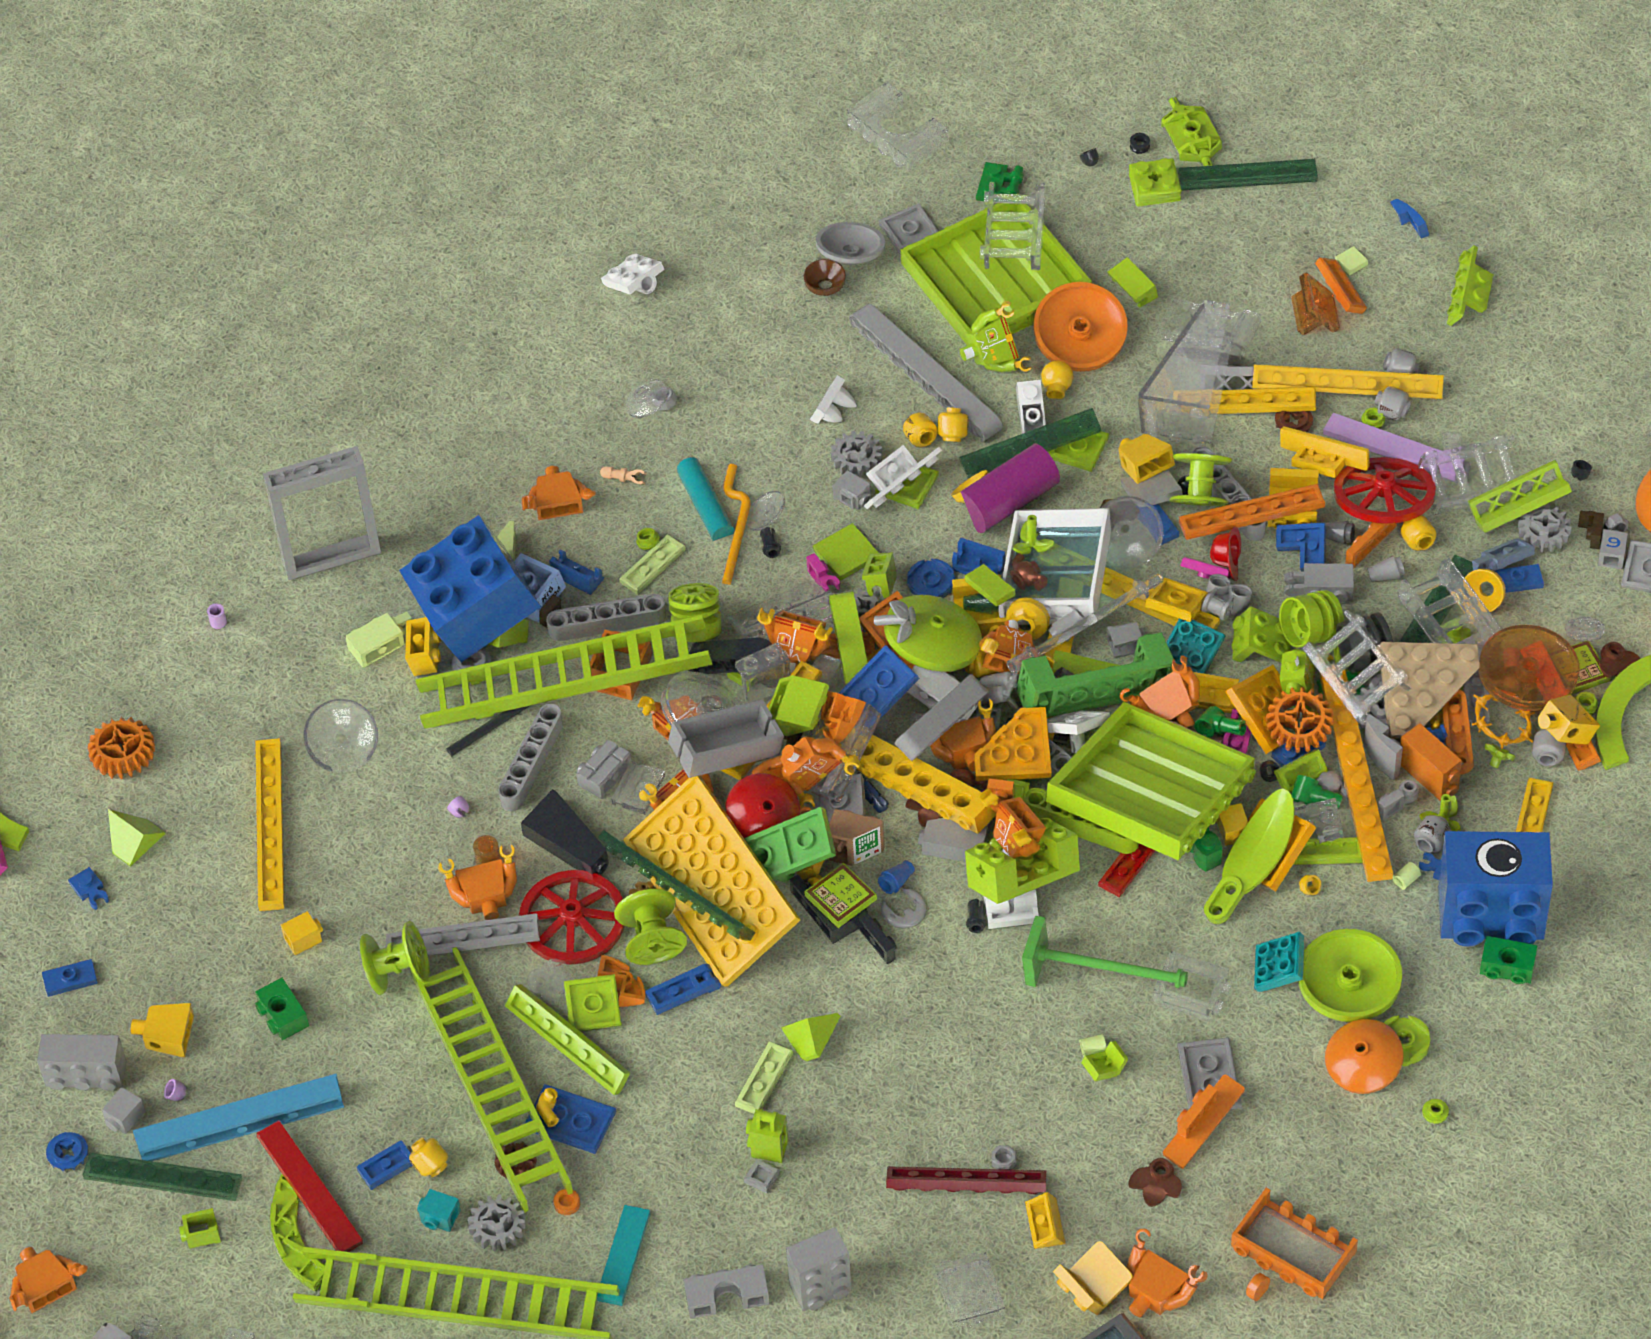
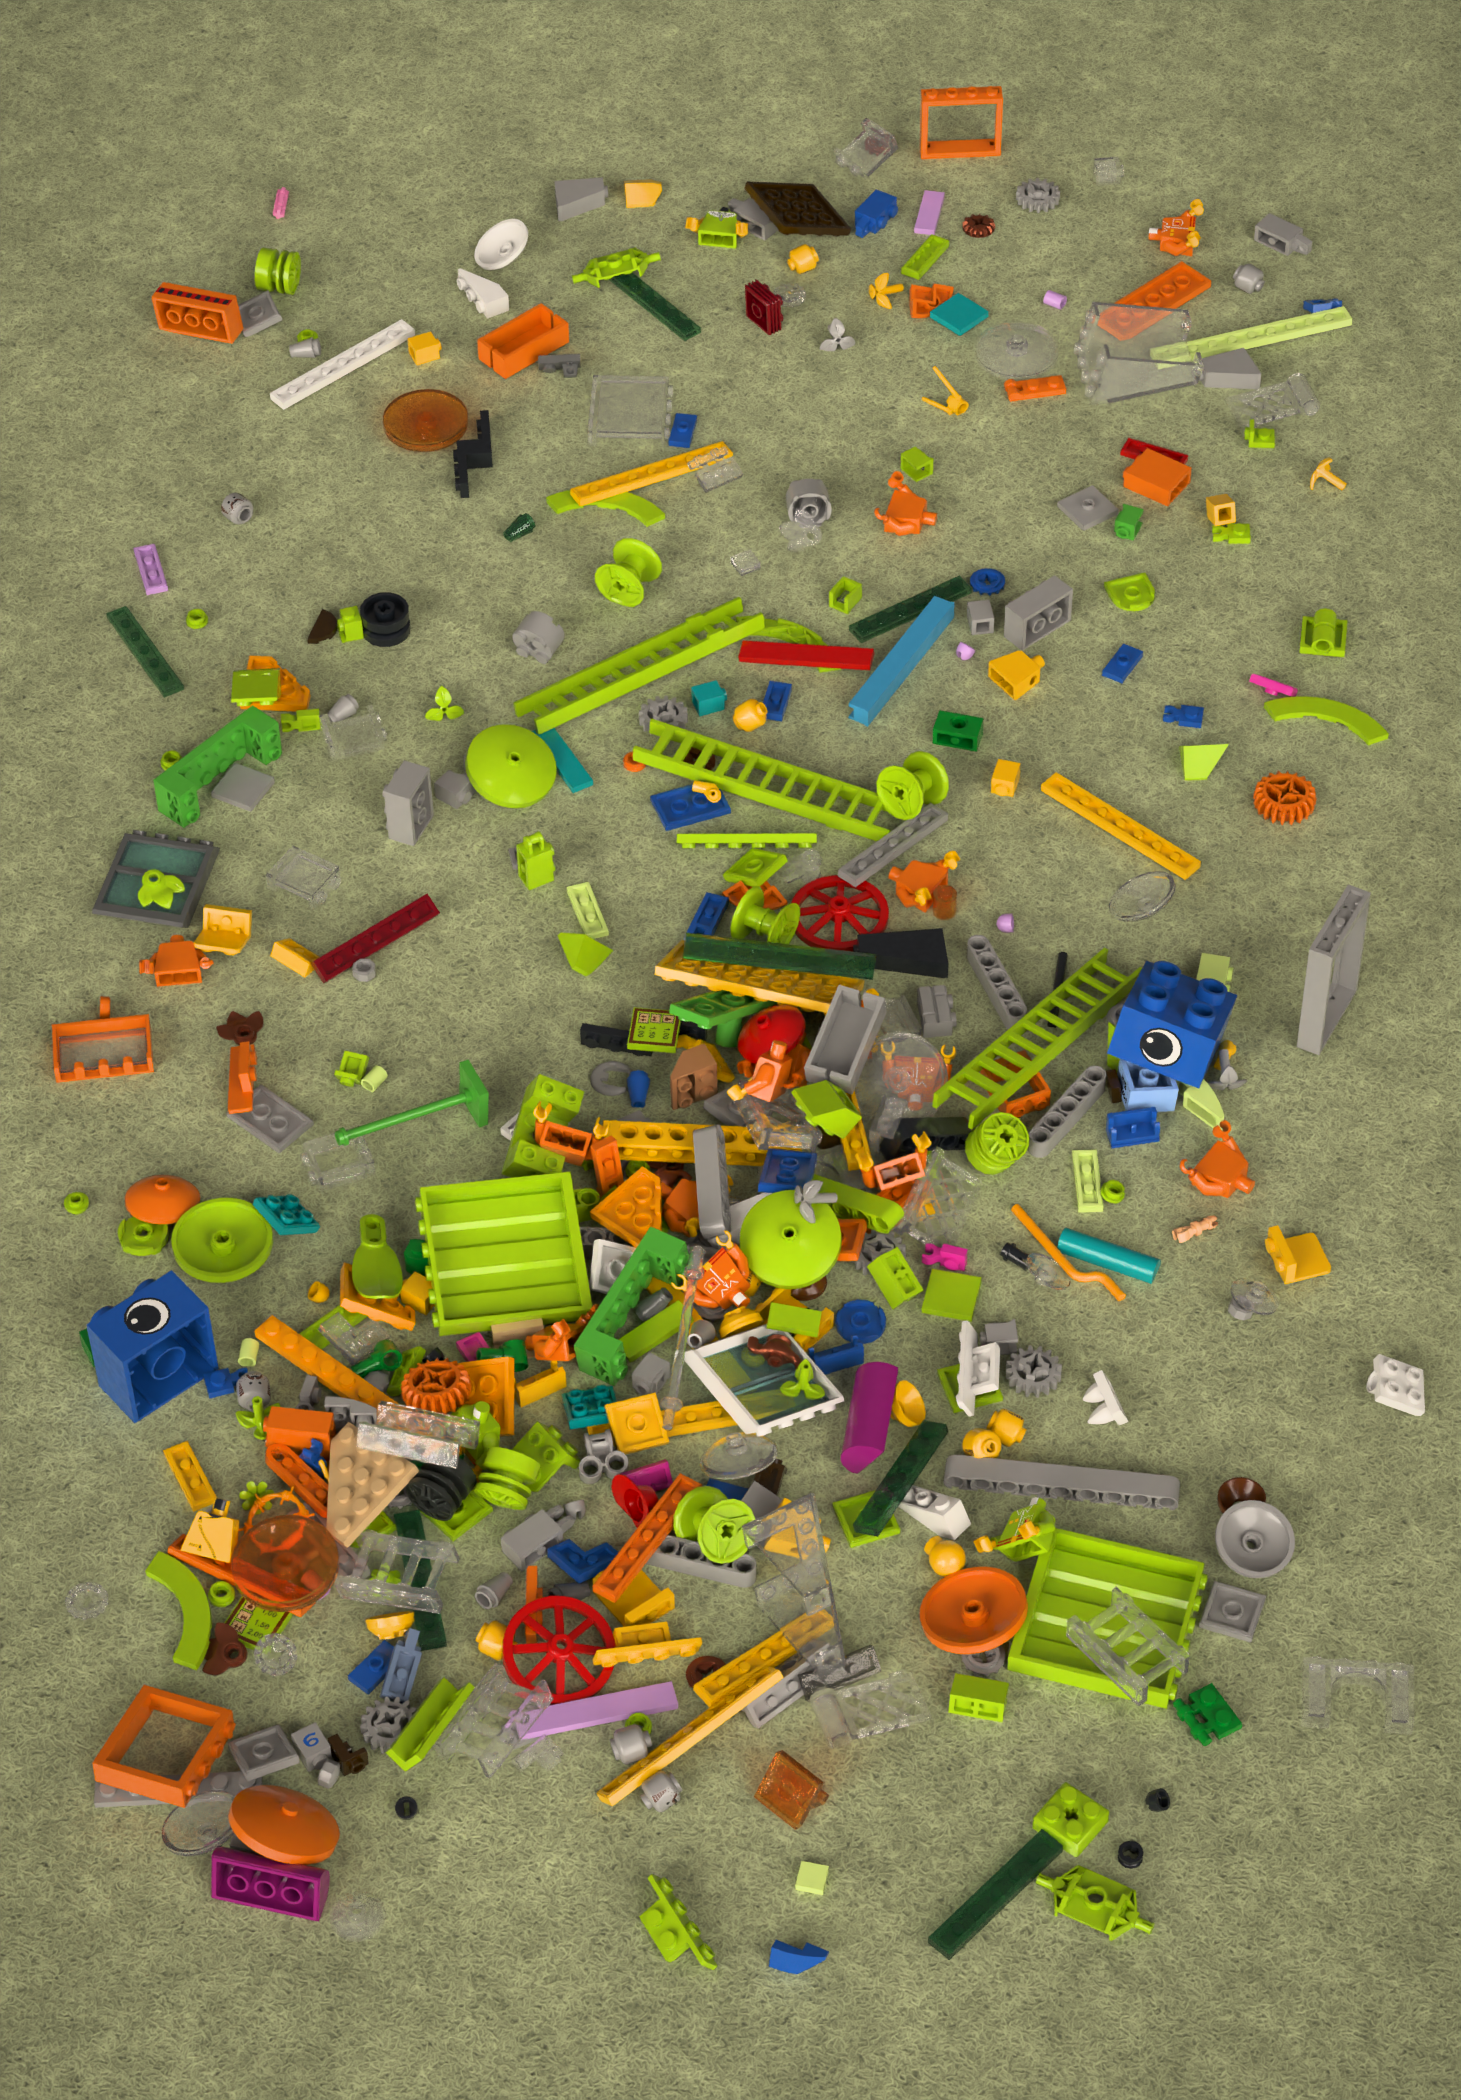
camera: 135 degrees right, 5 degrees down
(583, 404) = (1296, 1256): none -> yellow bracket
(684, 1261) = (510, 766): none -> lime dish
(840, 715) = (783, 1118): orange brick -> none
(1269, 586) = (575, 1506): none -> light grey hinge
(1341, 285) = (793, 1836): orange plate -> none

